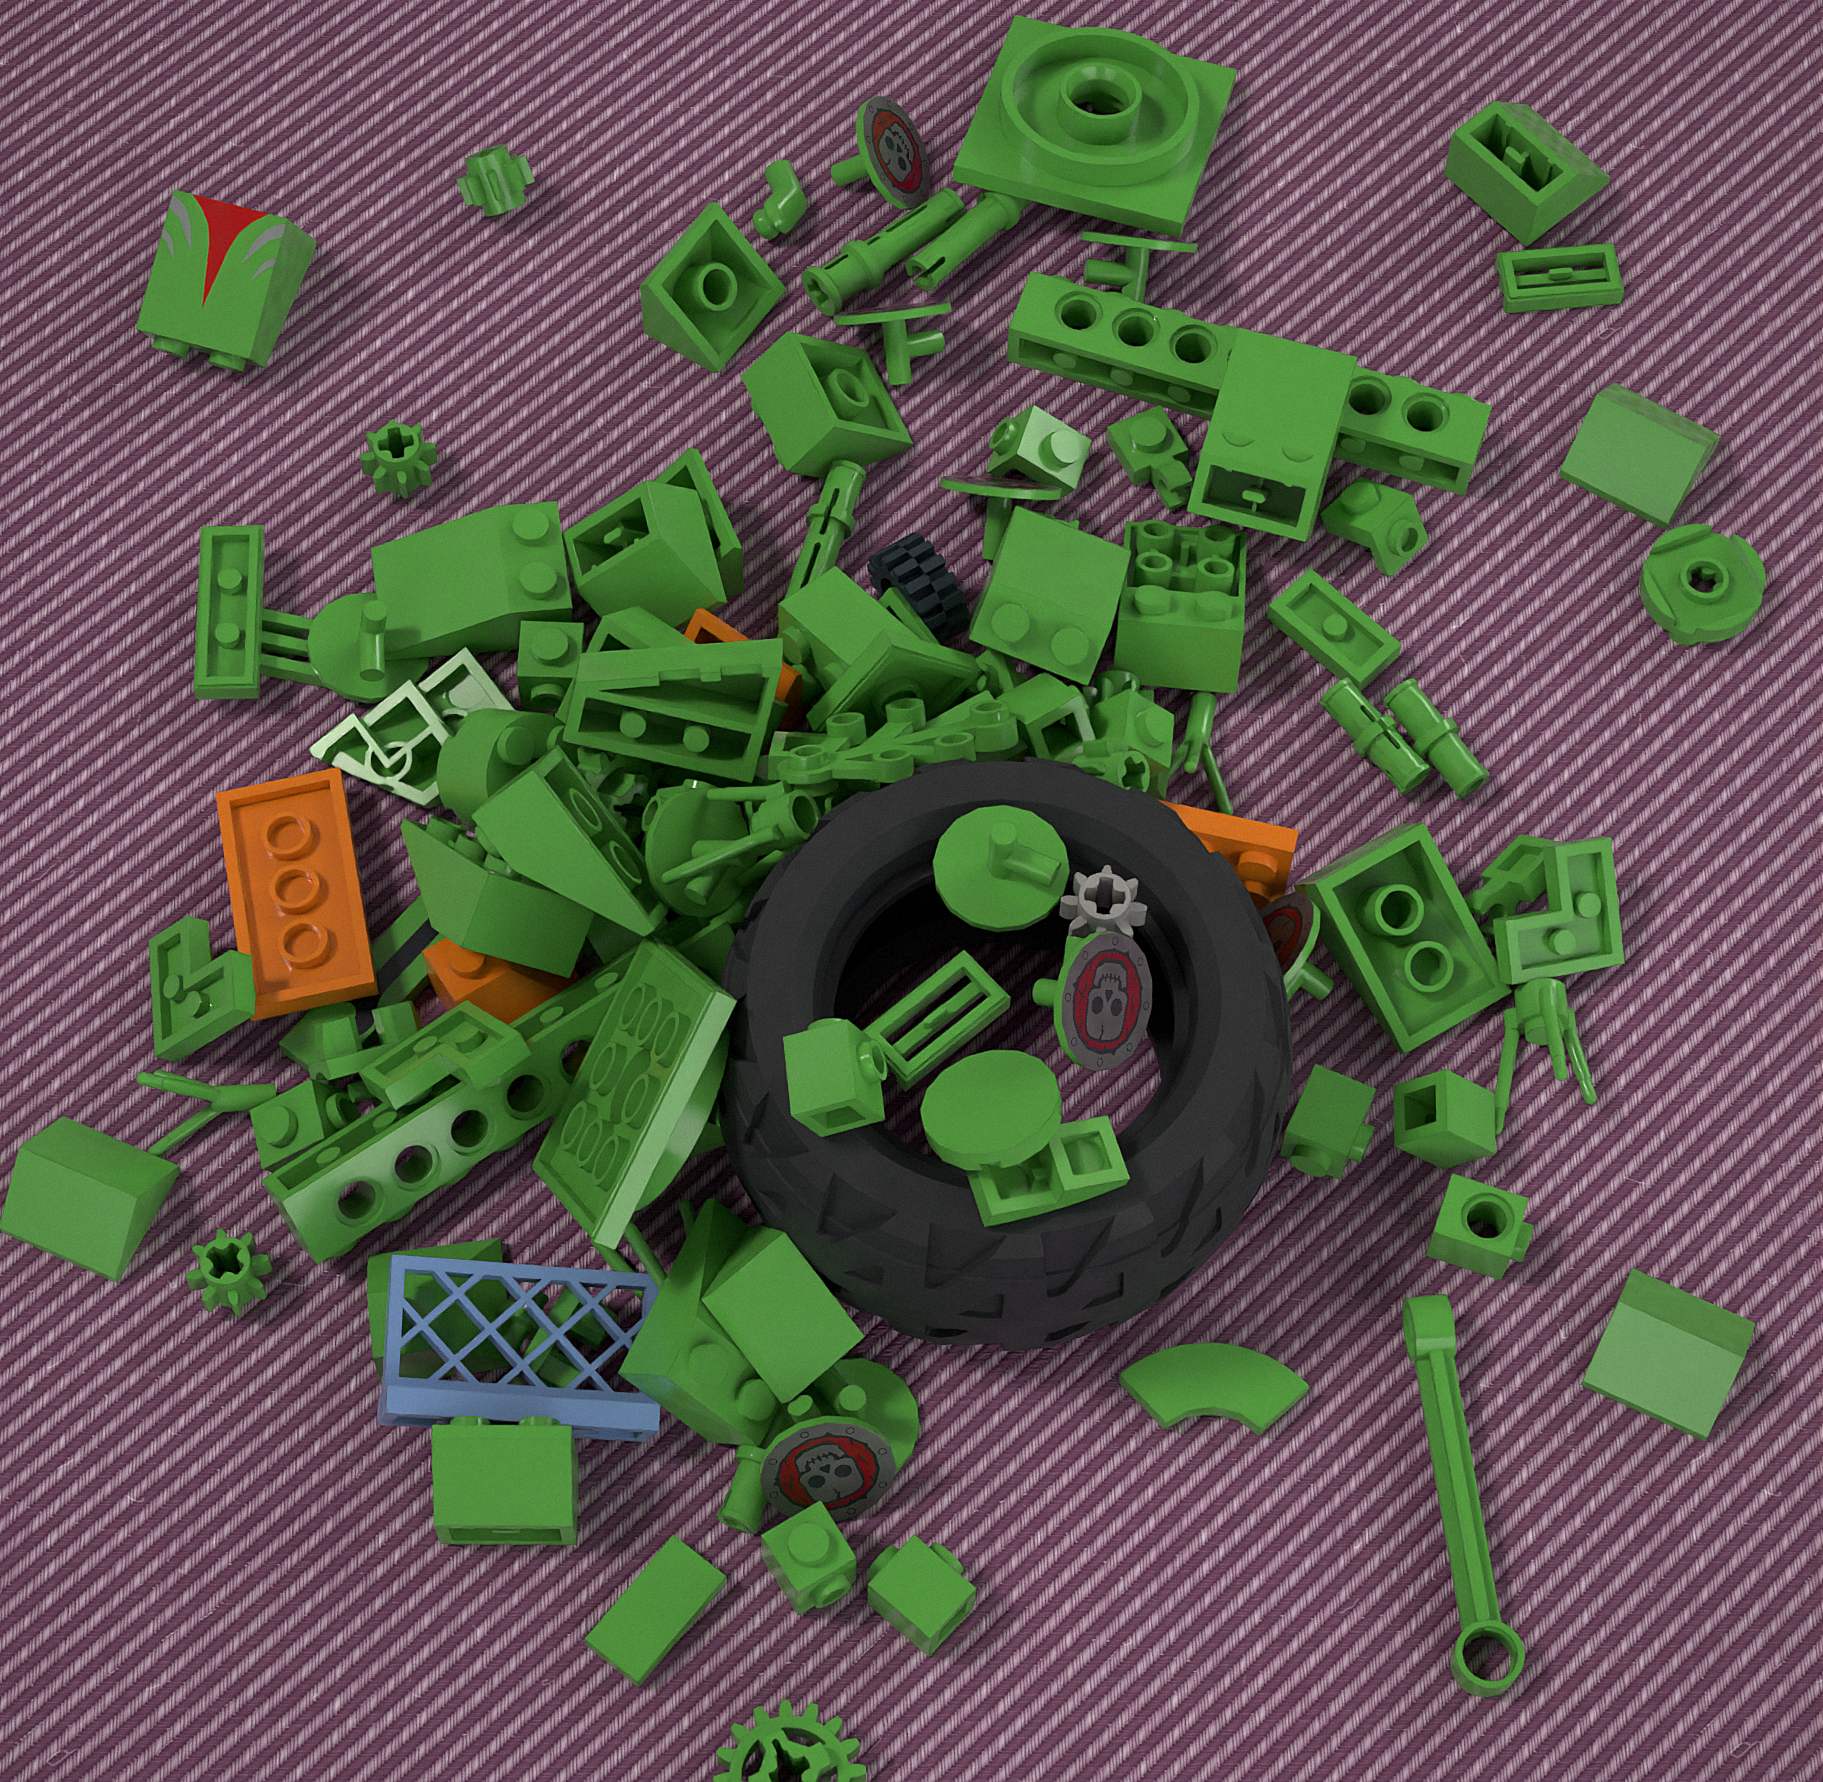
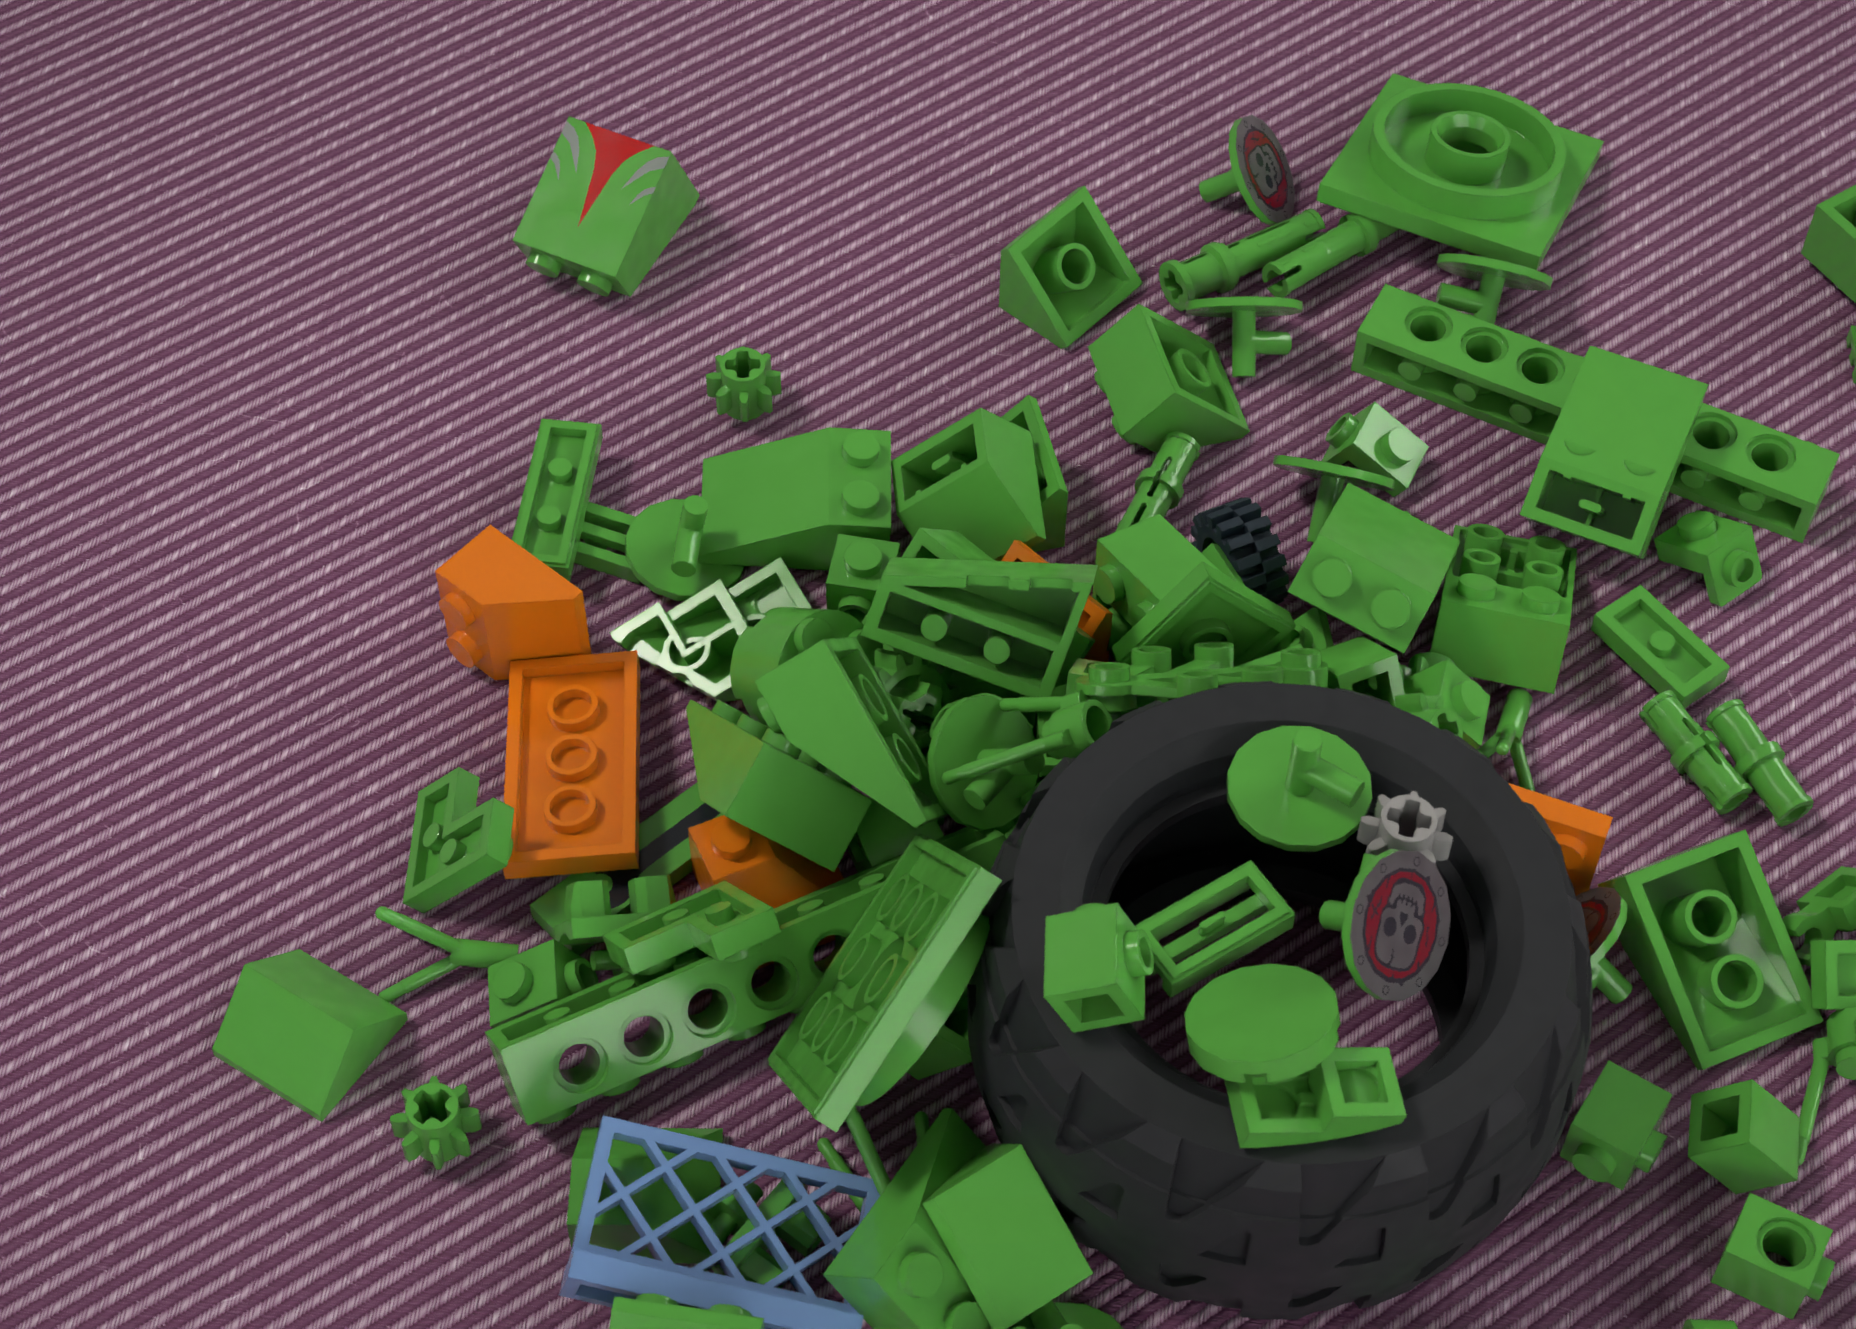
camera: 10 degrees right, 10 degrees down
(206, 741) = (508, 606): none -> orange slope
(495, 180) = (876, 155): bright green gear -> none
(785, 204) = (1148, 211): bright green arm -> none
(1153, 450) = (1488, 462): bright green plate -> none

